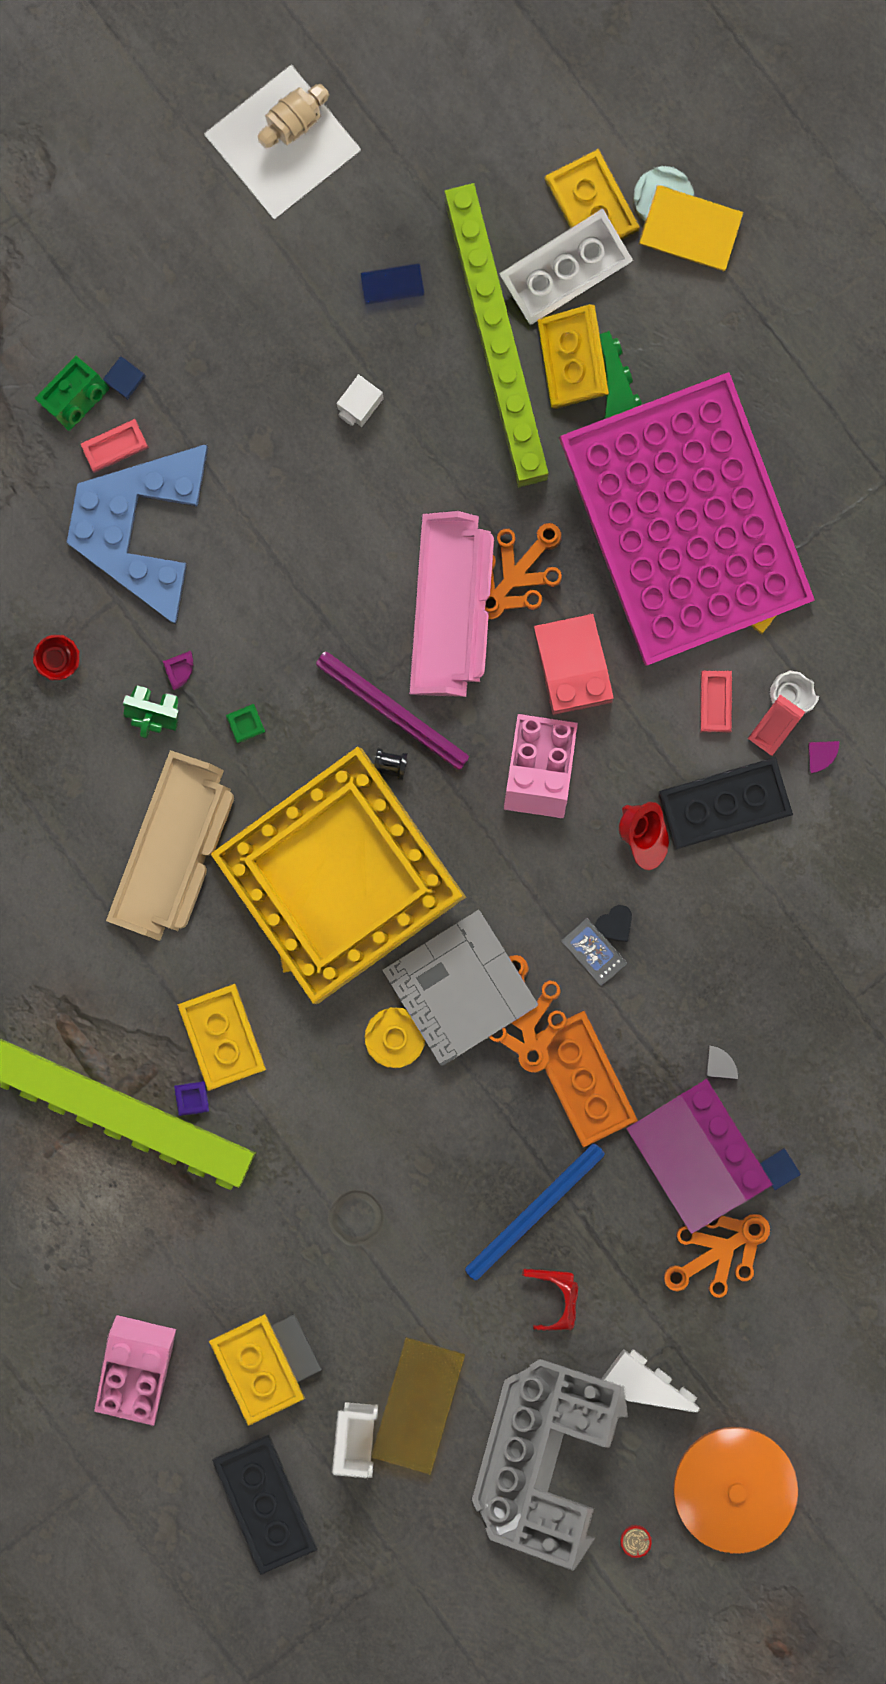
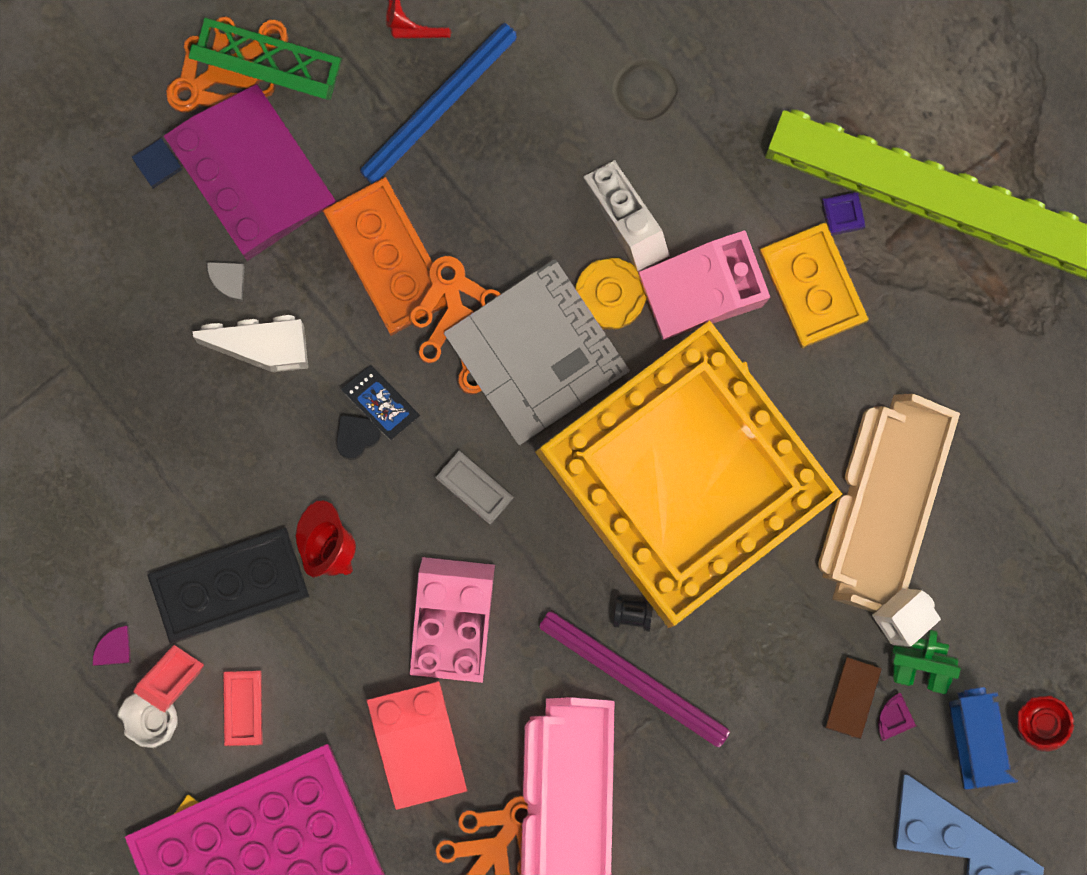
camera: 170 degrees right, 5 degrees down
(111, 644) = (980, 739): none -> blue window
(163, 749) = (907, 617): none -> white brick
(212, 687) = (853, 698): none -> reddish brown tile
(245, 723) = (809, 655): green tile -> none
(315, 1036) = (705, 285): none -> bright pink slope
(378, 1103) = (627, 216): none -> white slope
(517, 876) = (474, 488): none -> light grey tile
(688, 1002) = (267, 345): none -> white slope
(688, 1243) = (254, 69): none -> green fence

